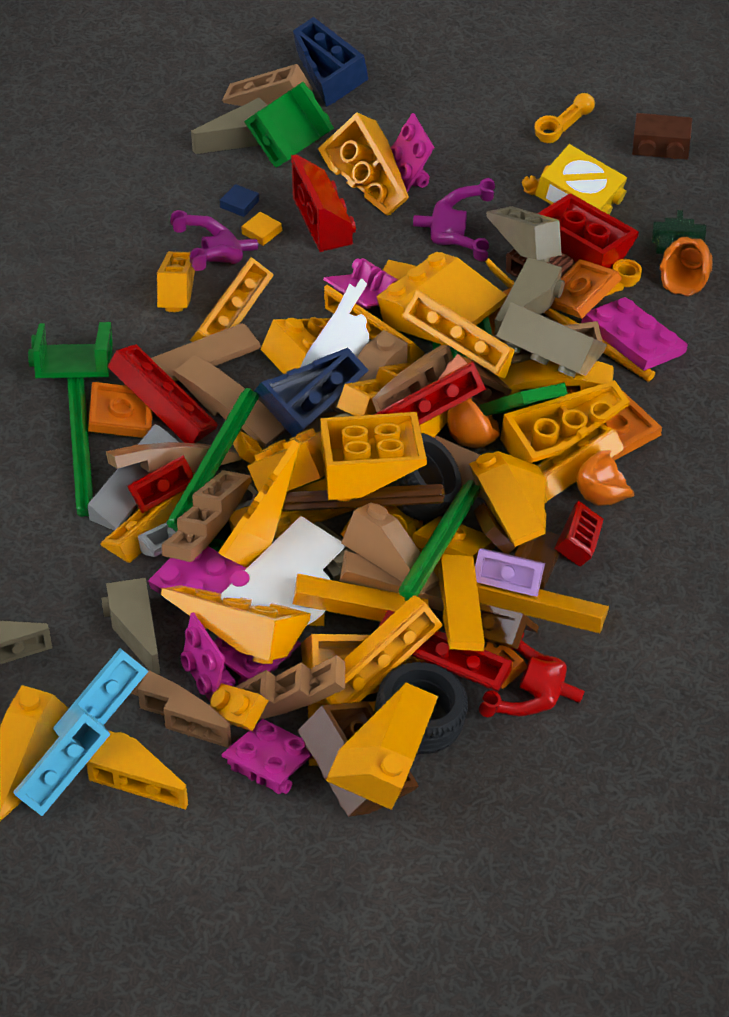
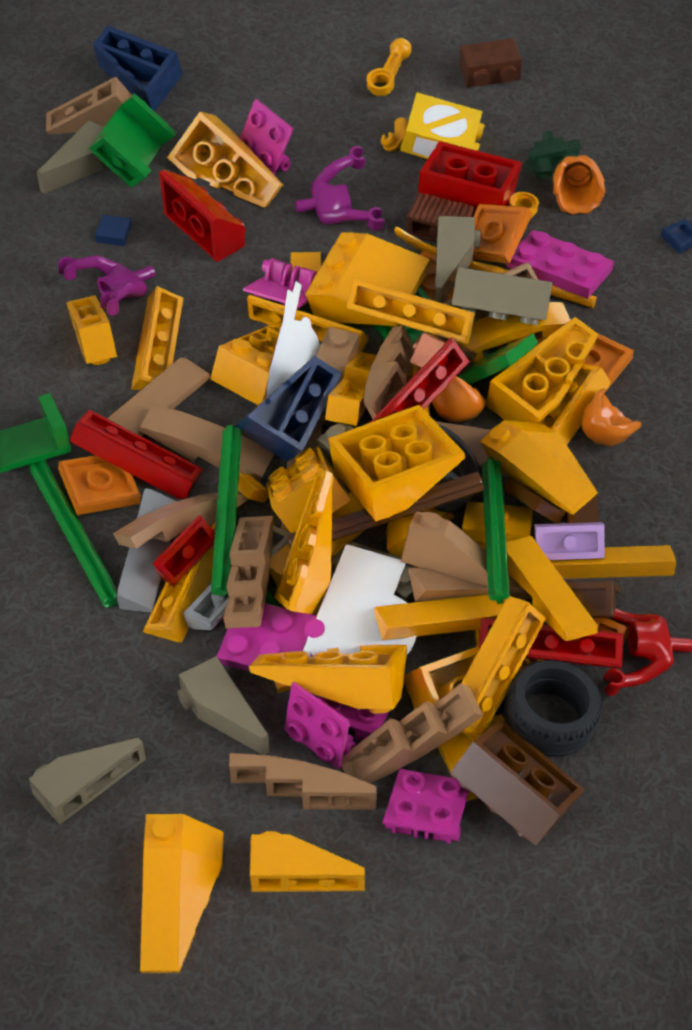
camera: 20 degrees left, 5 degrees up
(80, 732) = (232, 846): medium azure bracket -> none
(238, 706) = (377, 765): light orange plate -> none
(261, 228) = (149, 253): light orange tile -> none
(384, 748) = (556, 768): light orange wedge -> none
(528, 232) = (423, 190): dark tan slope -> none
(567, 543) = (611, 481): red slope -> none

